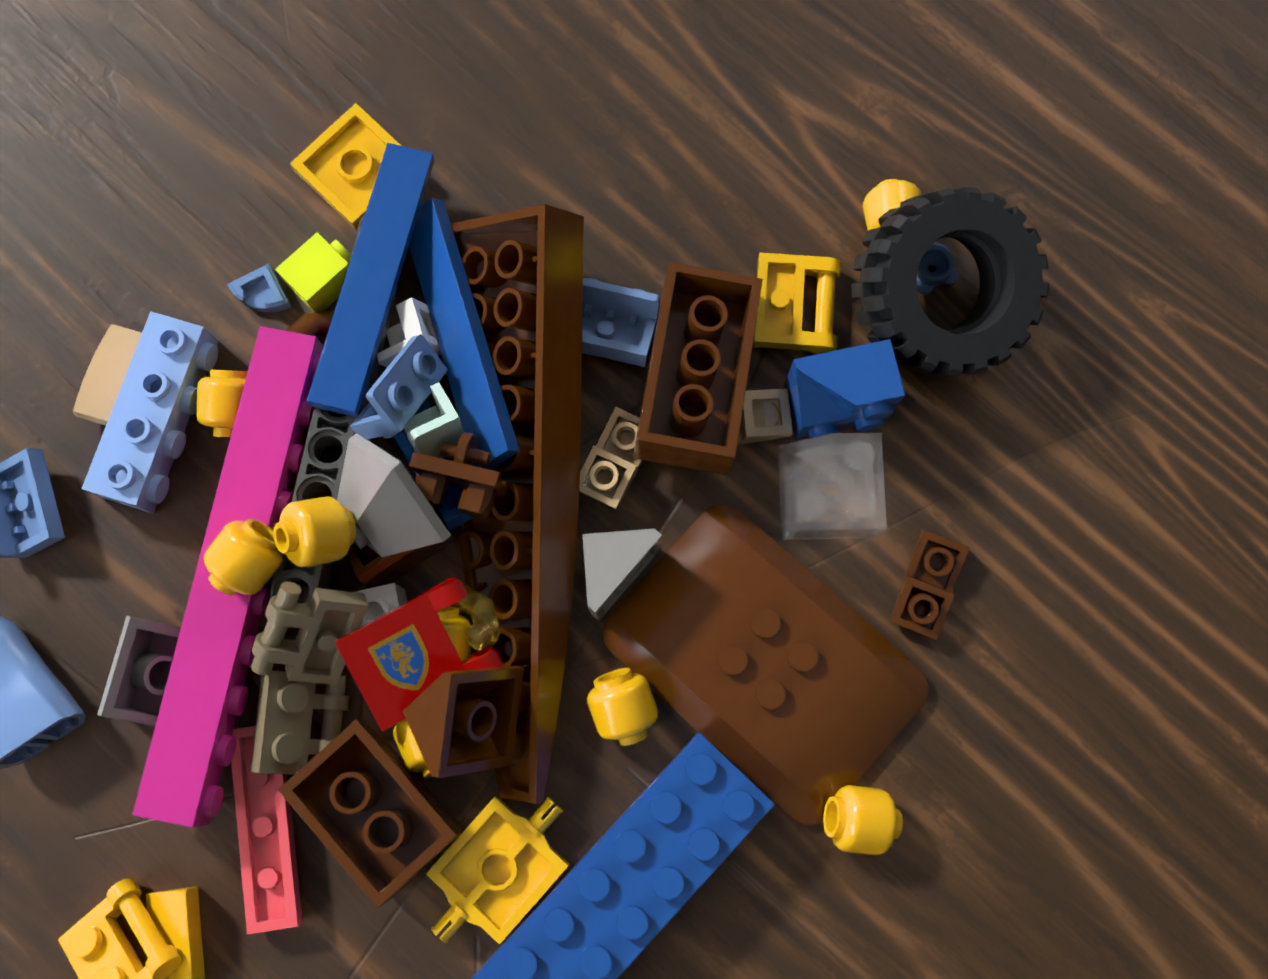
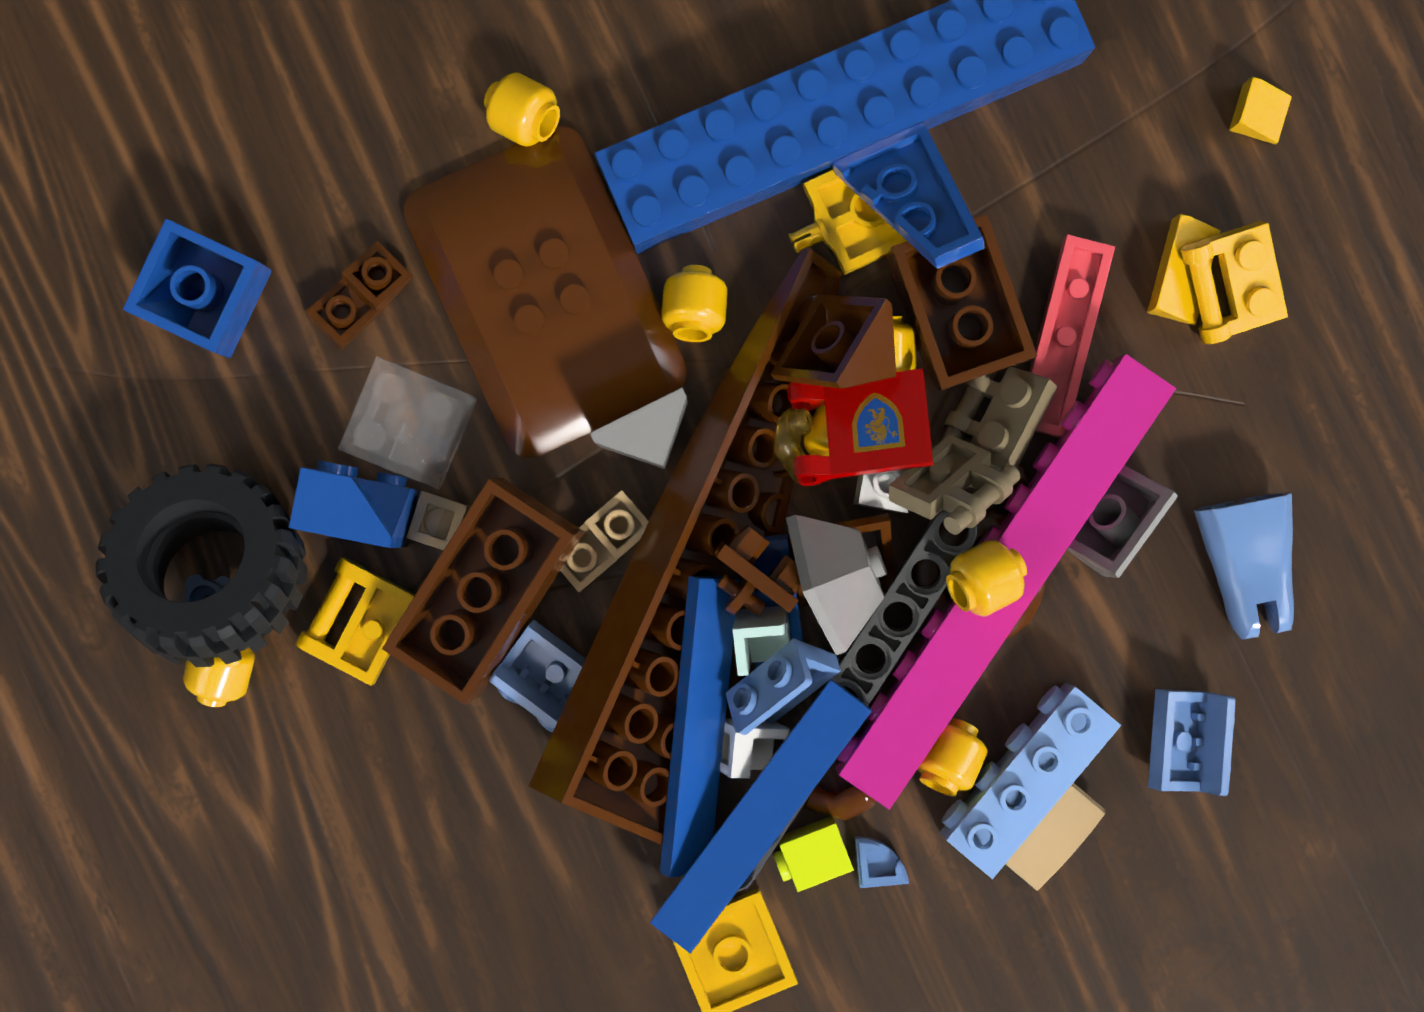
camera: 165 degrees left, 10 degrees up
(315, 531) = (910, 572): yellow head -> none
(453, 896) = (914, 194): none -> blue wing
(1074, 522) = (197, 289): none -> blue slope

